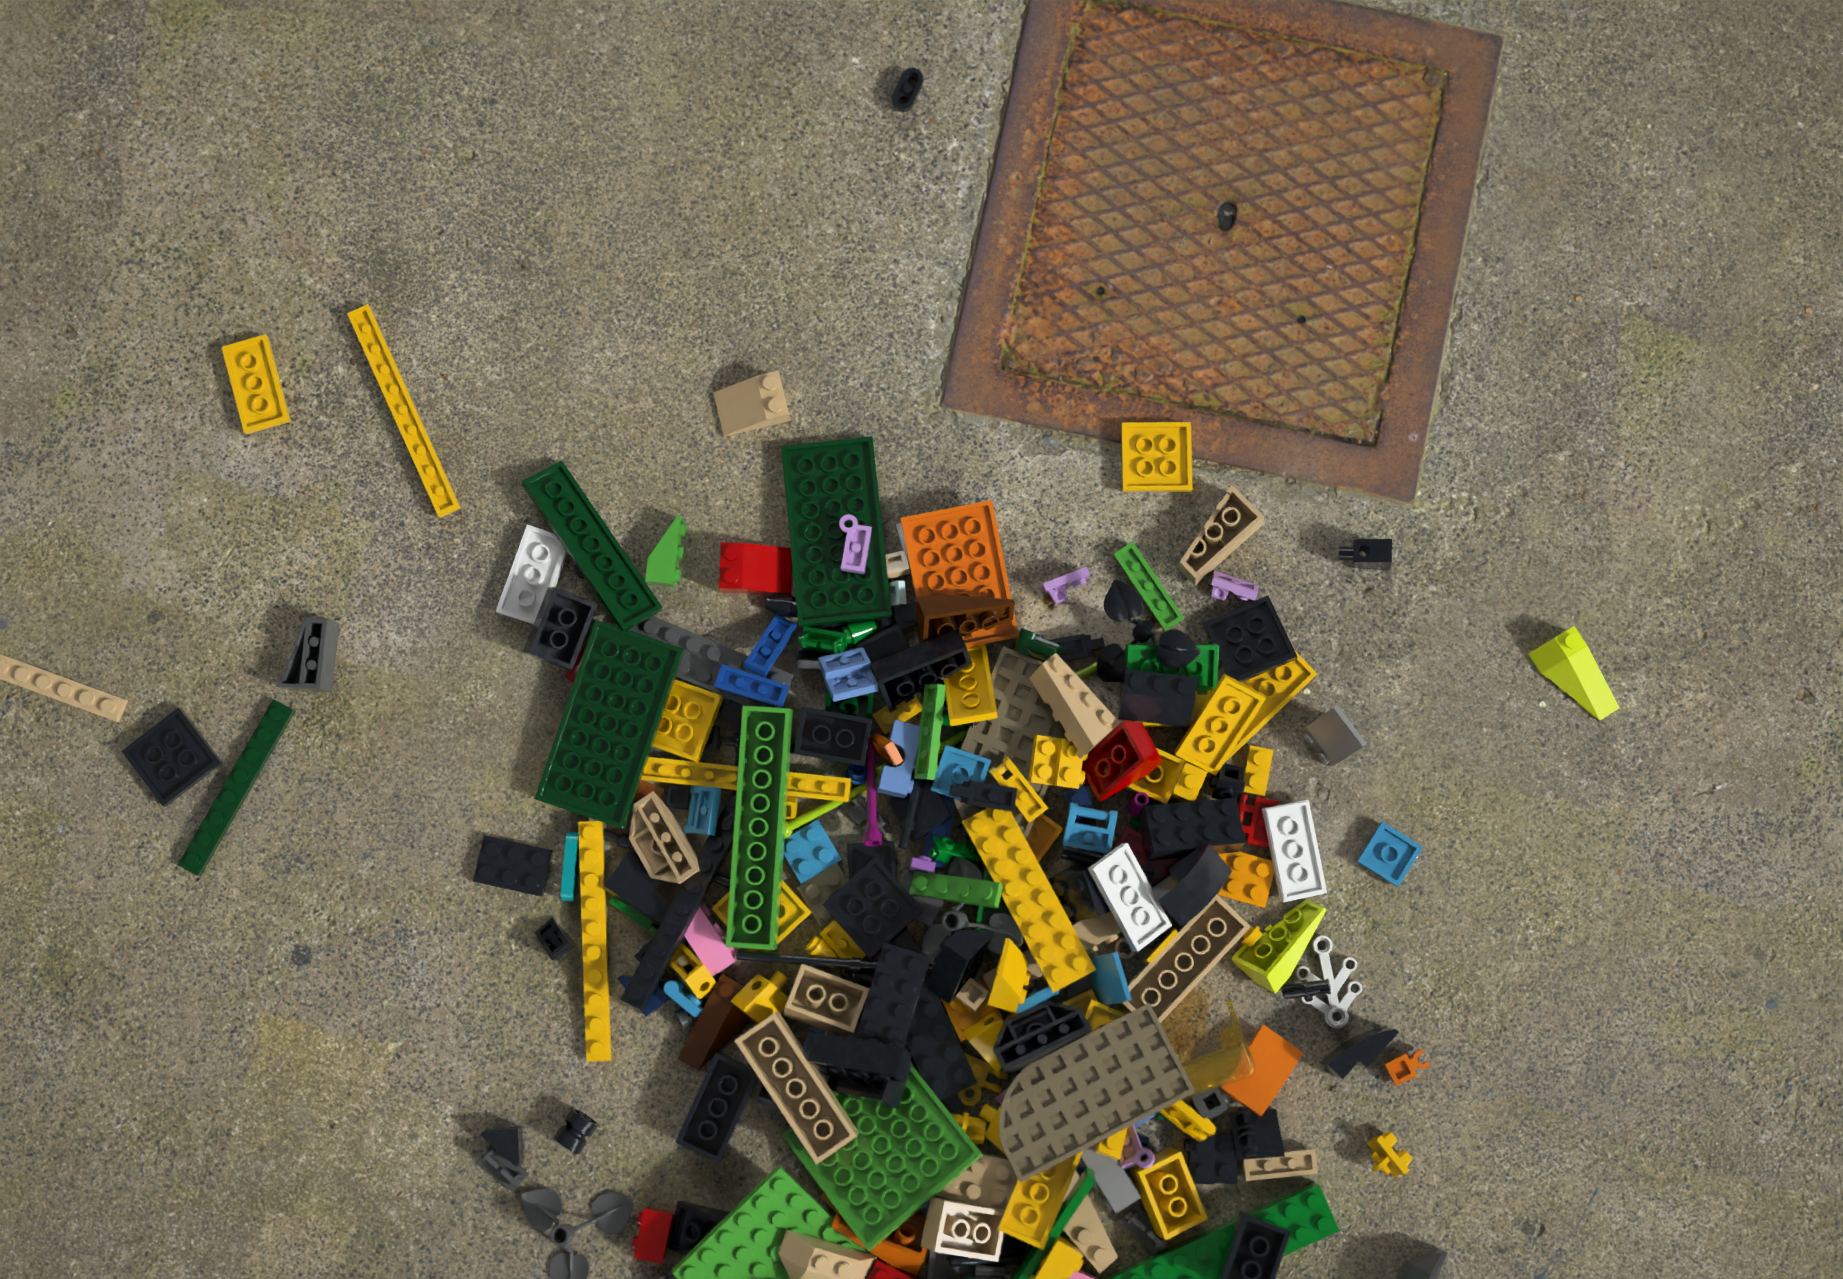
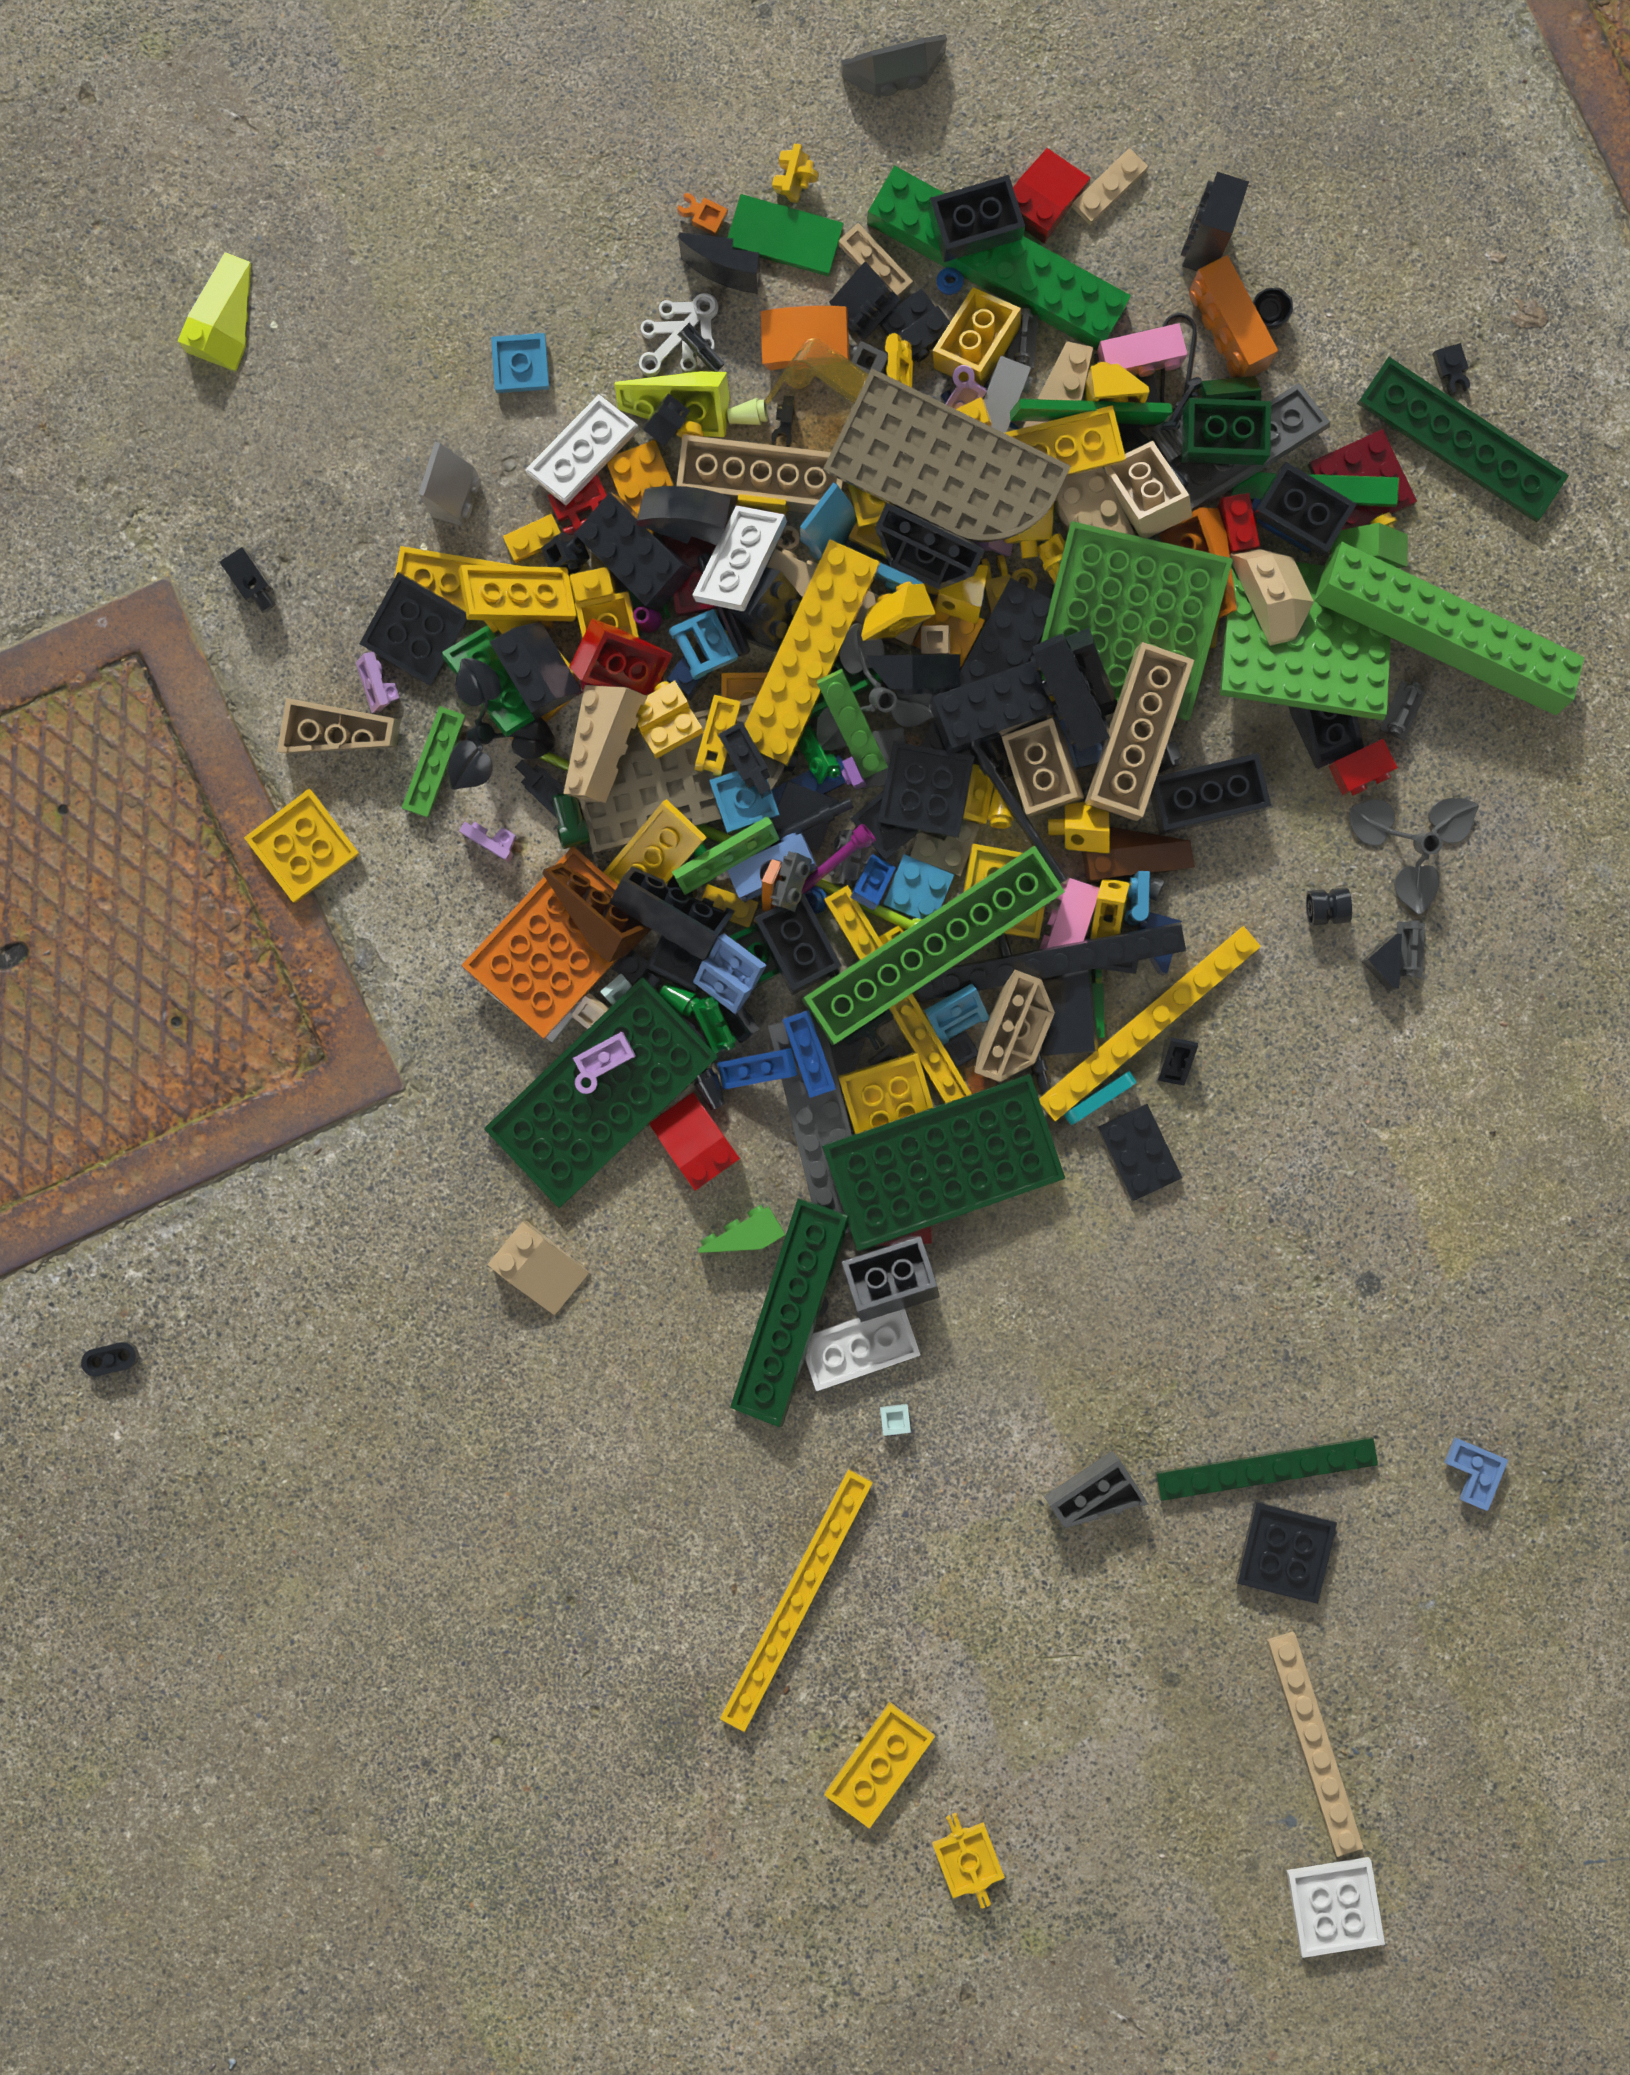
camera: 135 degrees left, 5 degrees up
(117, 935) = (1483, 1468): none -> medium blue plate
(149, 395) = (968, 1860): none -> yellow plate
(467, 563) = (895, 1419): none -> light aqua plate
(837, 822) = (872, 882): none -> blue plate
(883, 771) = (795, 869): none -> dark grey hinge
(1215, 1013) = (785, 416): none -> black plate
(1221, 1203) = (946, 288): none -> blue plate
(1235, 988) = (749, 413): none -> yellowish green cone
(1271, 923) = (666, 419): none -> black brick
(1348, 1114) = (785, 234): none -> green tile

